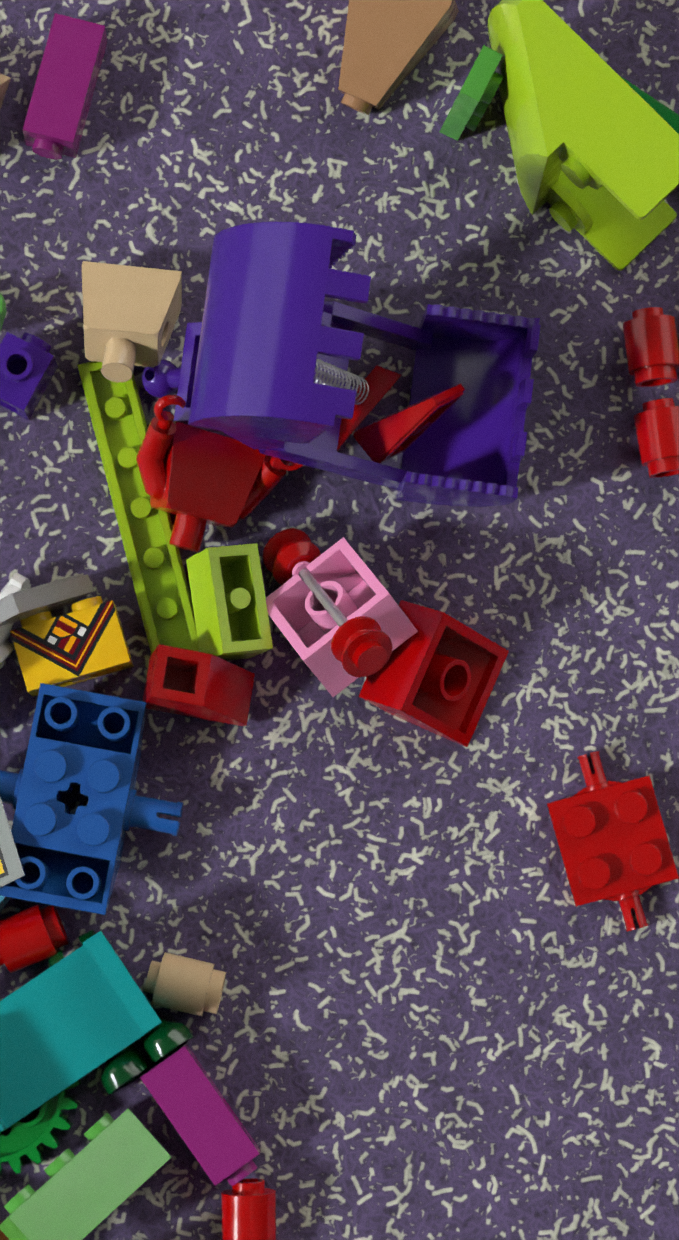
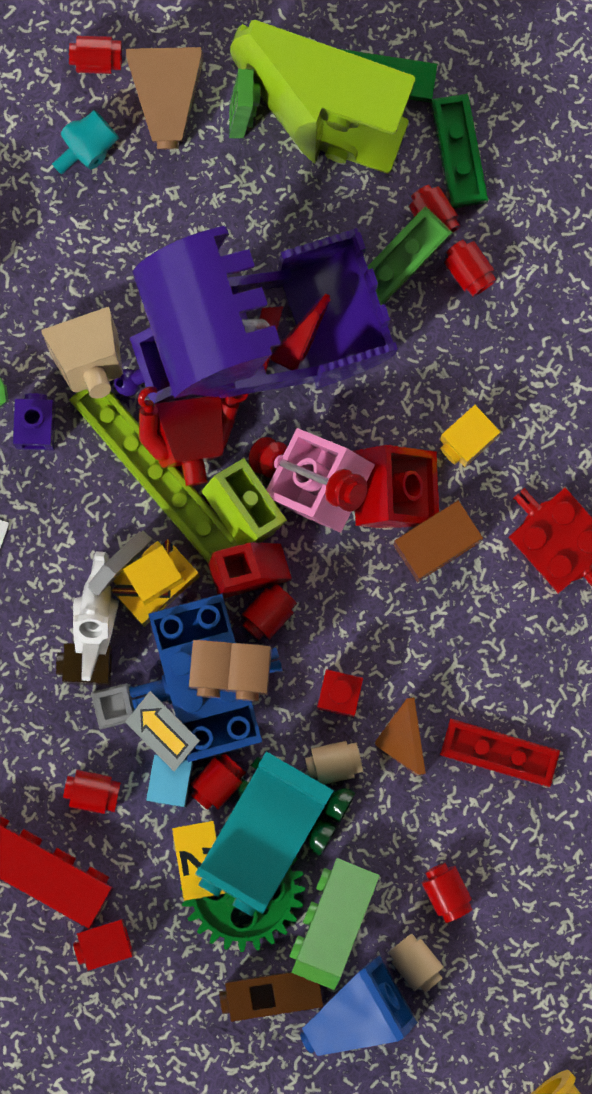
camera: 25 degrees left, 0 degrees up
(71, 637) = (155, 574): none -> yellow brick
(105, 802) = (230, 669): none -> medium nougat brick
(195, 754) = (268, 612): none -> red brick
(202, 1117) = (386, 841): magenta brick -> none
(234, 900) = (340, 693): none -> red brick
(258, 53) = (86, 141): none -> teal piece
(287, 995) = (402, 738): none -> dark orange slope
(403, 1074) = (499, 753): none -> red tile
(454, 766) = (438, 541): none -> dark orange panel
(557, 652) = (468, 437): none -> yellow brick
(591, 383) = (408, 252): none -> bright green tile

